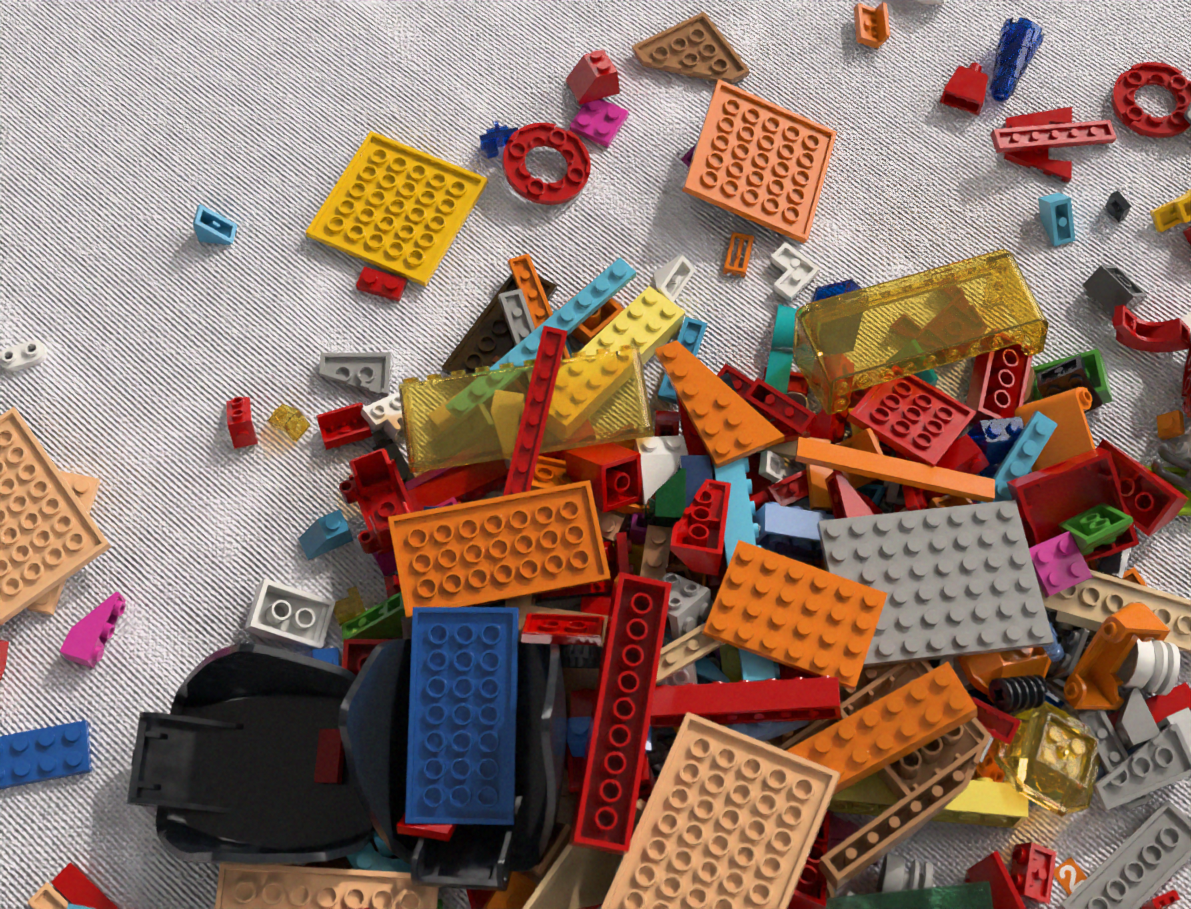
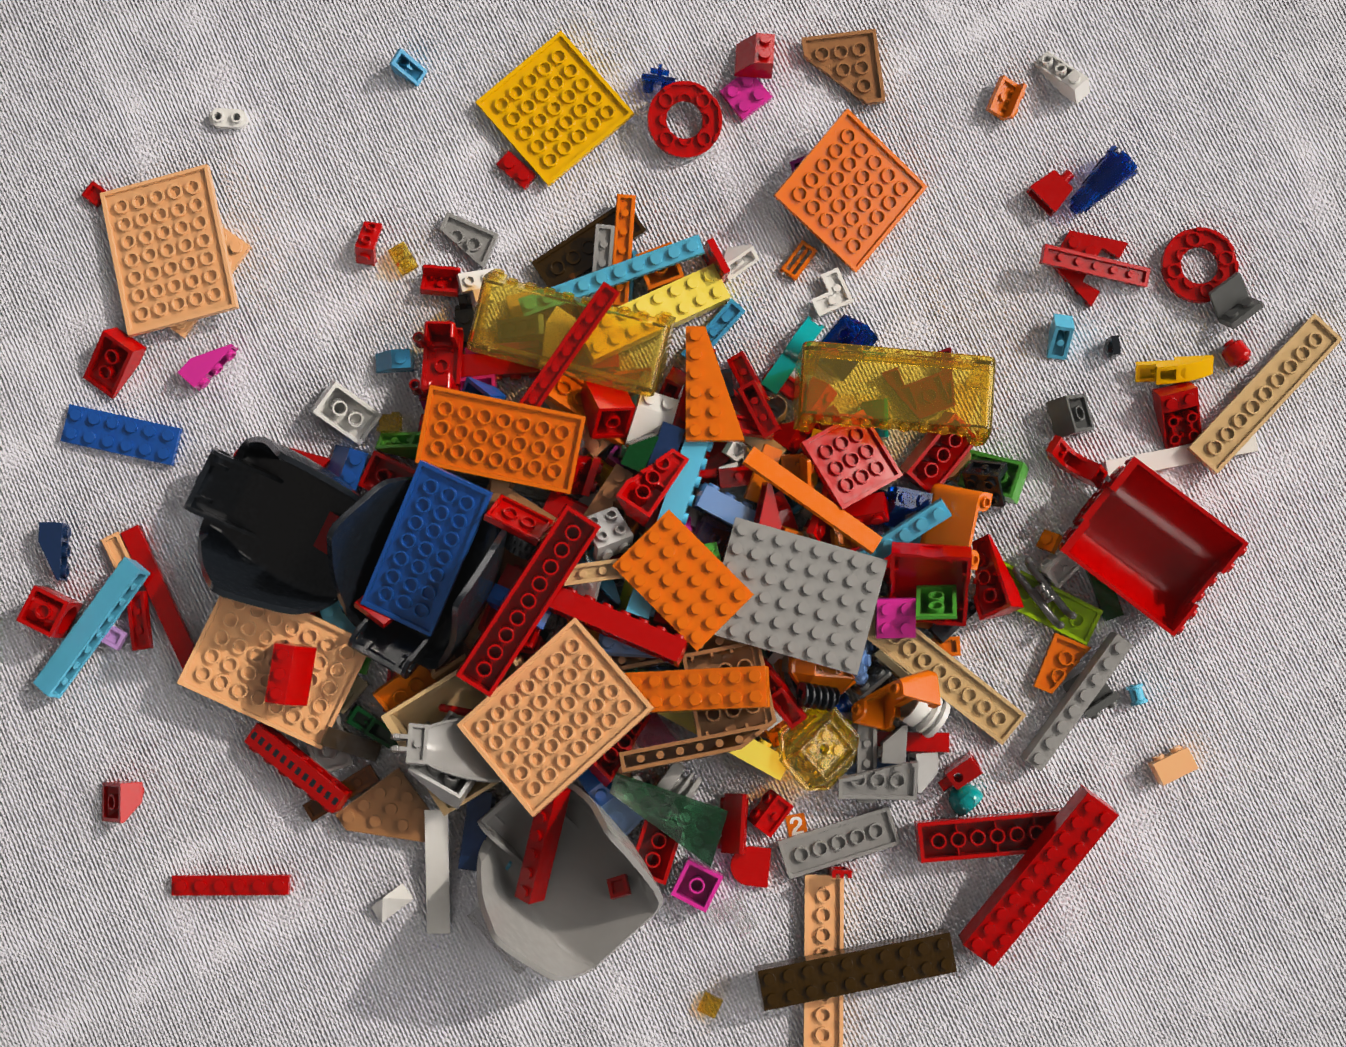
camera: 25 degrees right, 20 degrees up
(649, 276) = (714, 256): none -> red tile

